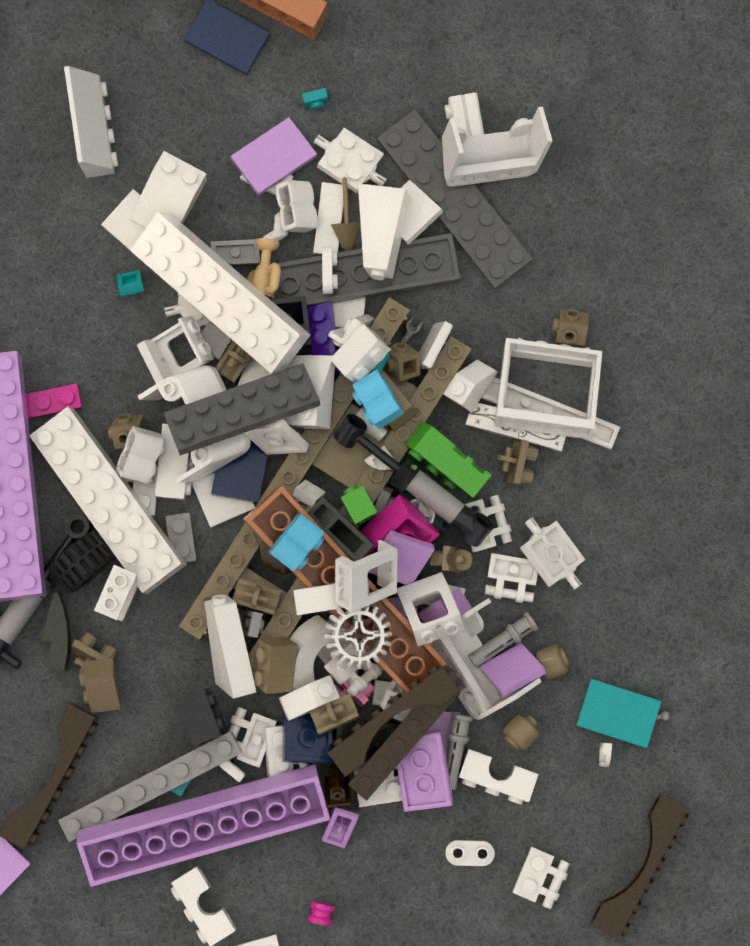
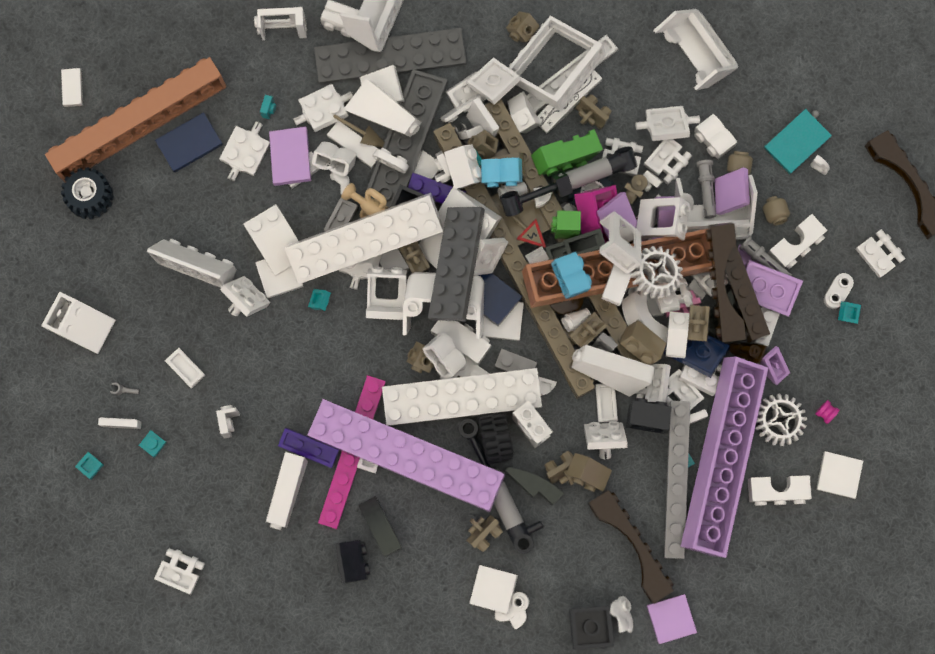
camera: 60 degrees left, 5 degrees down
(82, 198) = (244, 297): none -> white plate
(152, 681) = (605, 437): none -> white plate
(175, 584) = (546, 385): none -> white tile
(192, 663) = (606, 403): none -> white tile
(242, 707) = (658, 388): none -> white plate
(252, 103) = (244, 151): none -> white plate
(263, 575) = (573, 320): none -> white cone
(296, 848) = (786, 437): none -> white gear
(335, 472) = (531, 233): none -> piece
(408, 338) = (466, 134): none -> white tile
(433, 71) = (296, 15): none -> white window
(450, 878) = (849, 312): none -> teal plate
(460, 311) = (462, 98): none -> white bracket
(477, 573) = (652, 180): none -> white tile
(485, 331) = (493, 81): none -> white plate
(569, 616) = (715, 136): none -> white brick
(669, 543) = (700, 45): none -> white windscreen

